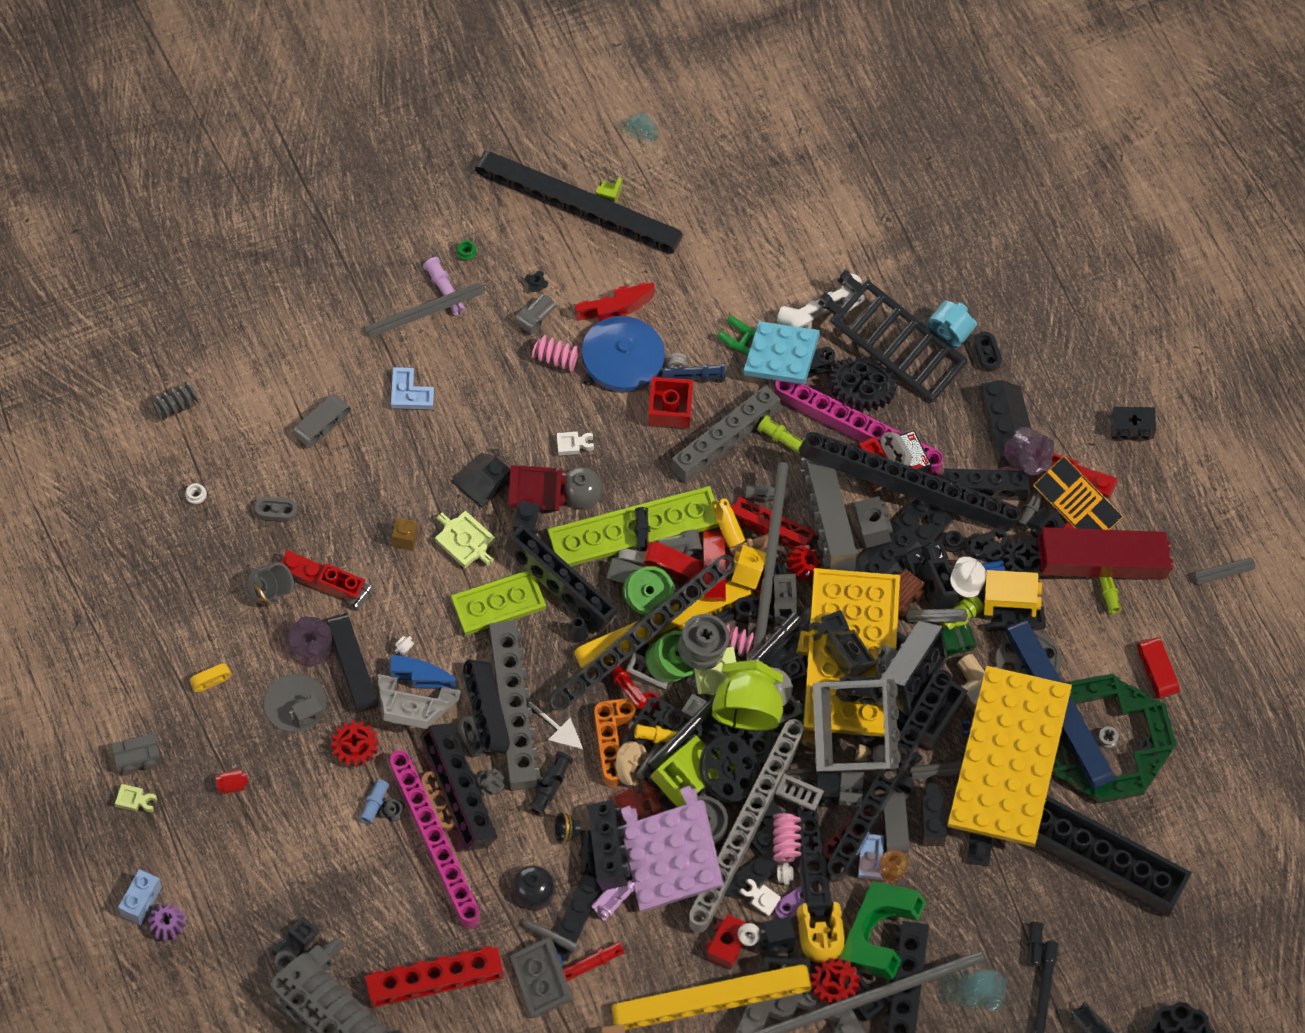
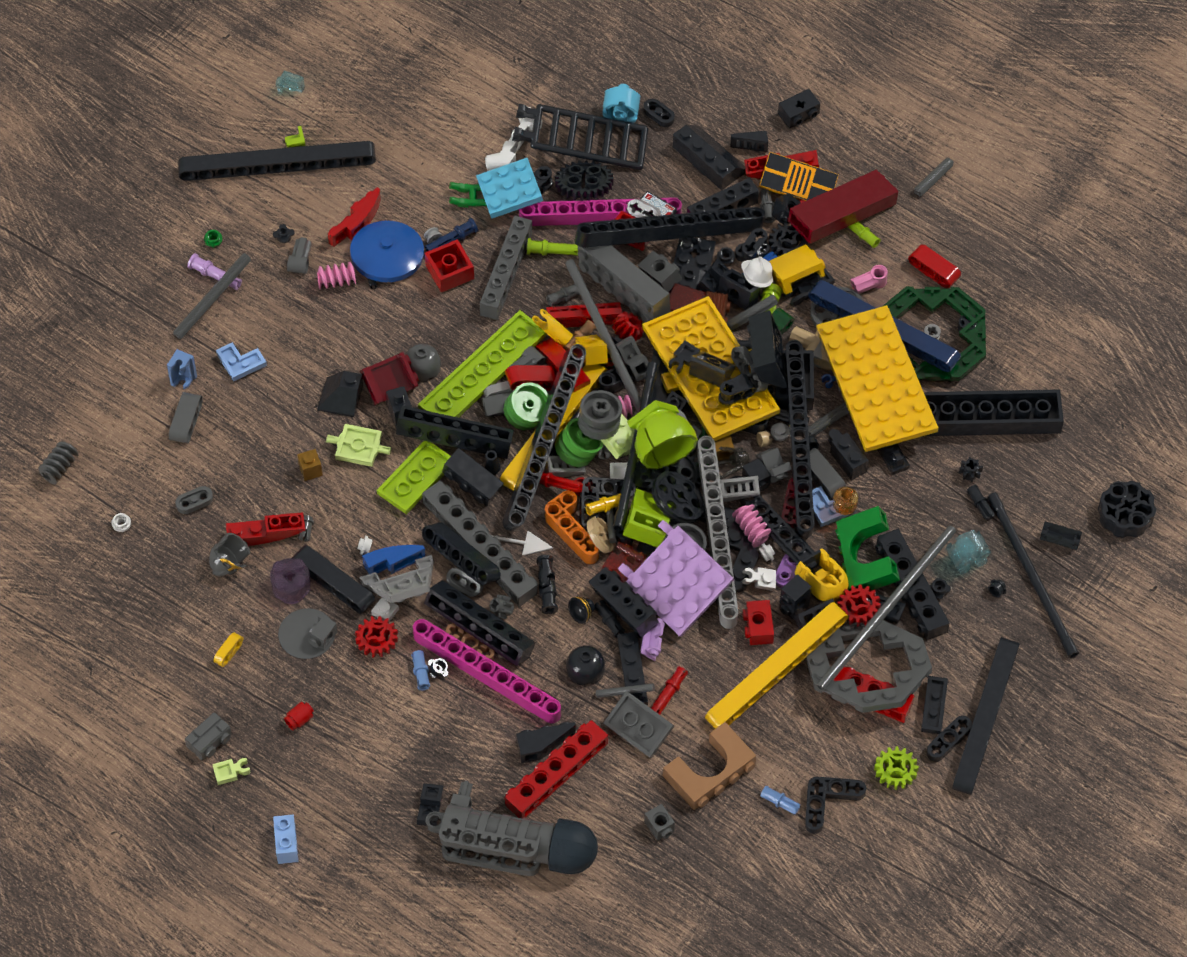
camera: 30 degrees left, 5 degrees down
(158, 925) = (319, 852): medium lavender gear -> none
(346, 367) = (181, 368): none -> medium blue hinge
(378, 723) = (385, 609): none -> white plate
(438, 941) = (539, 743): none -> black slope
(548, 634) = (472, 477): none -> black brick
(570, 443) = (392, 335): white plate -> none
(642, 528) = (491, 365): black pin -> none
(749, 939) = (778, 607): white plate -> none
(823, 727) = (728, 426): dark grey window -> none
(878, 561) = (683, 296): none -> clear red piece
(934, 1003) = (940, 583): none -> black plate
(1029, 451) = (743, 161): clear purple brick -> none
(1047, 897) = (970, 469): none -> black gear
(1060, 431) = (750, 141): none -> black slope
(1079, 646) = (869, 280): none -> bright pink piece

